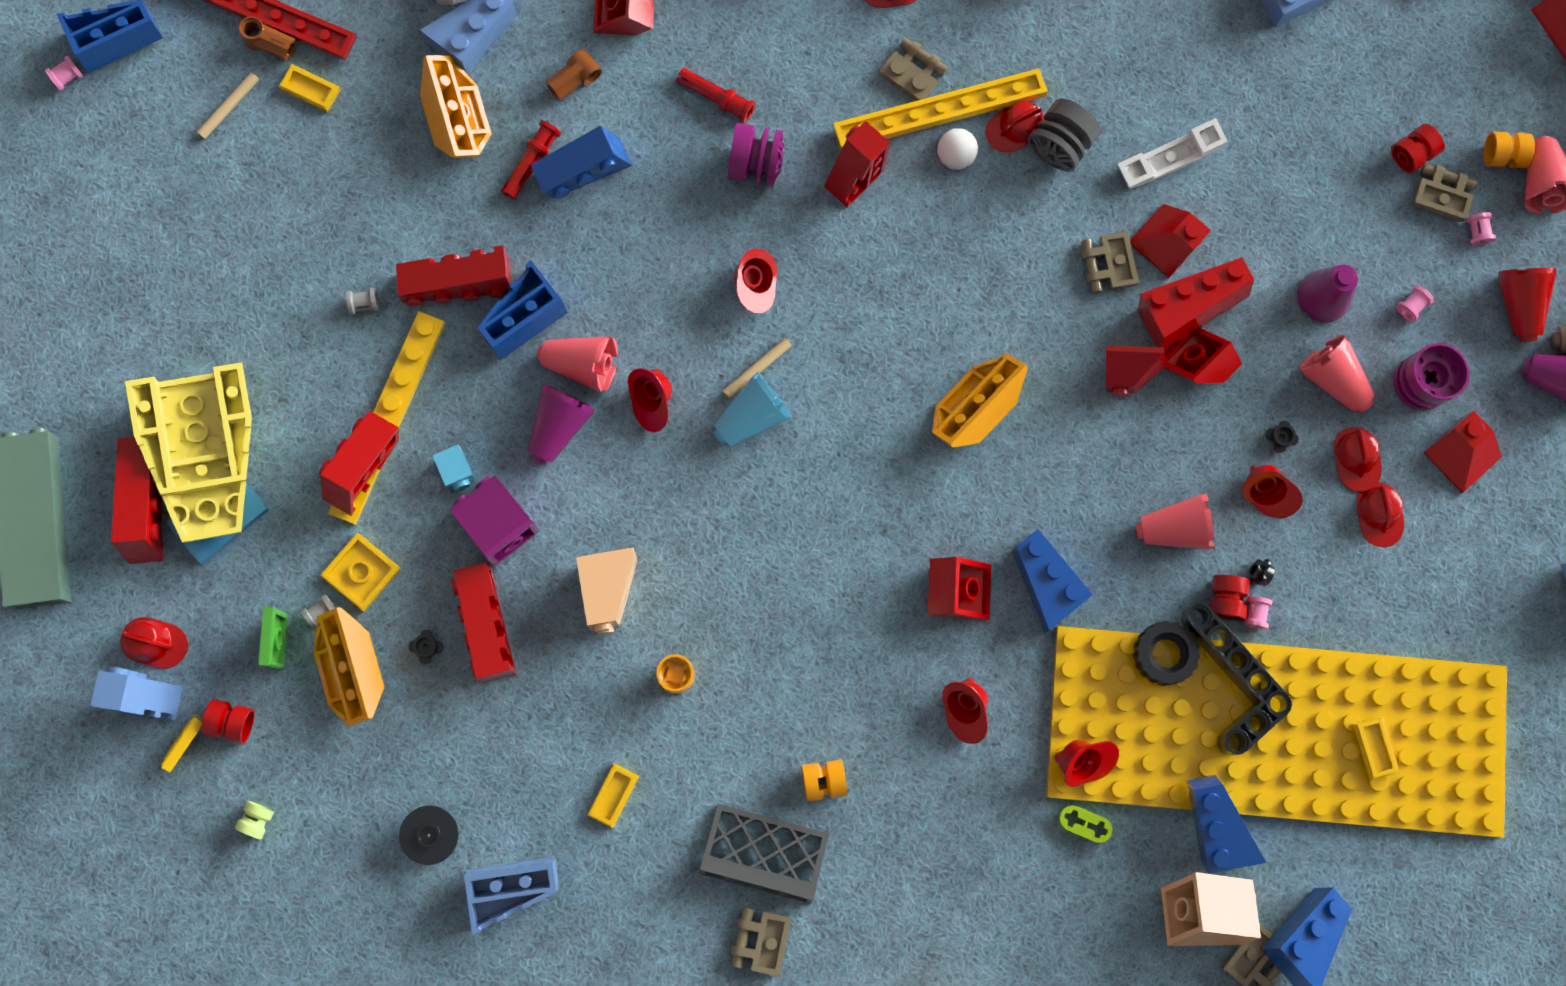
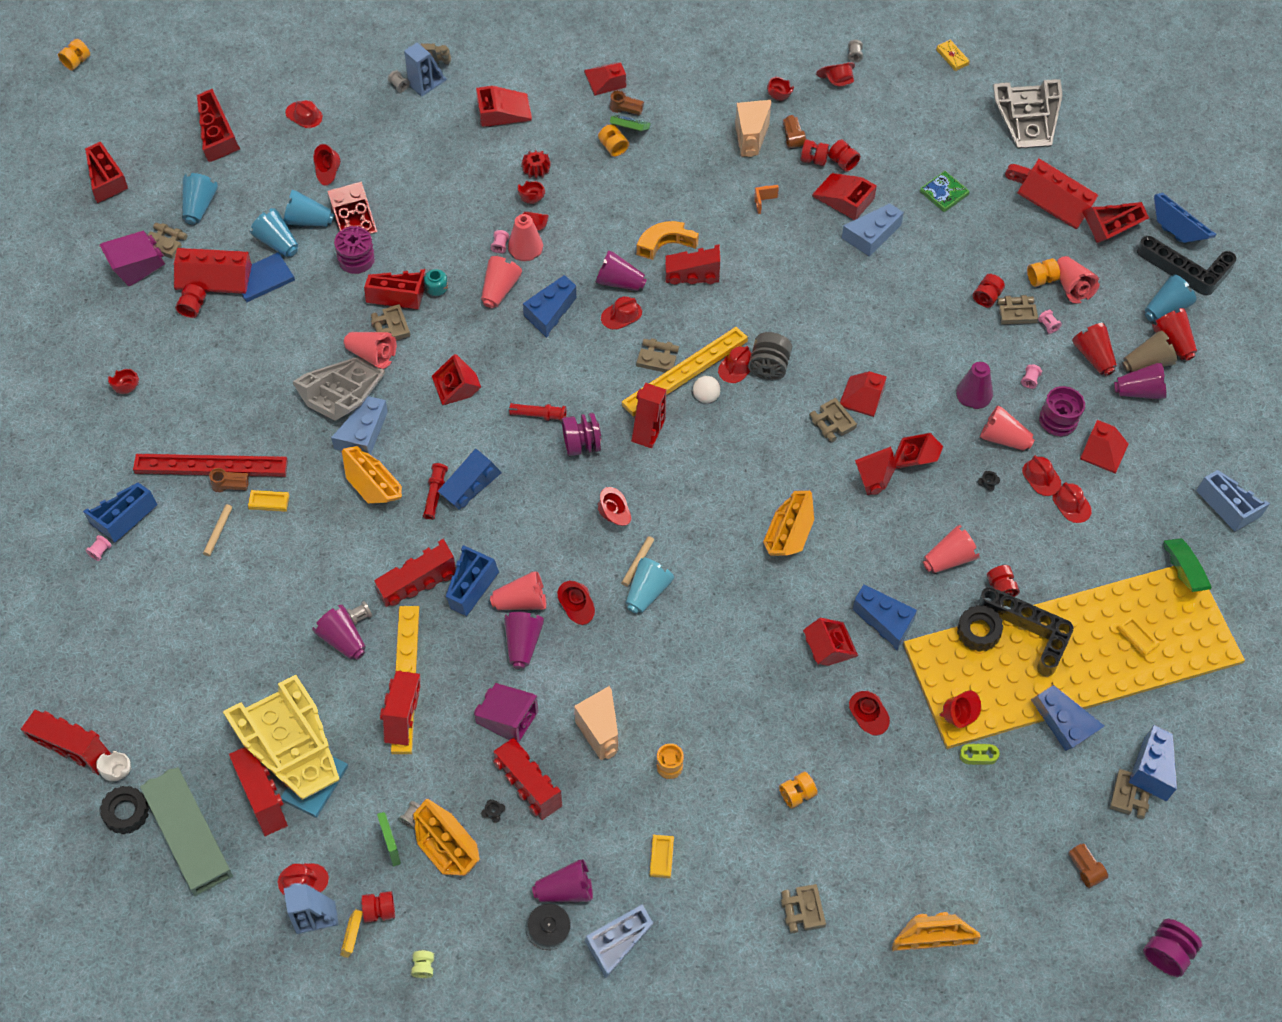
camera: 15 degrees left, 20 degrees down
(325, 323) = (340, 632): none -> magenta cone
(360, 572) = (428, 780): yellow tile -> none
(454, 468) = (465, 691): medium azure brick -> none
(474, 790) = (565, 885): none -> magenta cone
(579, 70) = (442, 430): dark orange piece -> none
(758, 878) = (787, 868): dark grey fence -> none
(1173, 155) = (843, 346): white slope -> none
(1191, 302) = (895, 420): red wedge -> none
(1210, 911) = (1084, 771): light nougat slope -> none
(1257, 612) = (1025, 586): bright pink bush -> none
(1261, 572) = (1016, 562): black plate -> none
(1271, 492) = (999, 513): red piece -> none
(1493, 676) = (1188, 565): none -> green slope

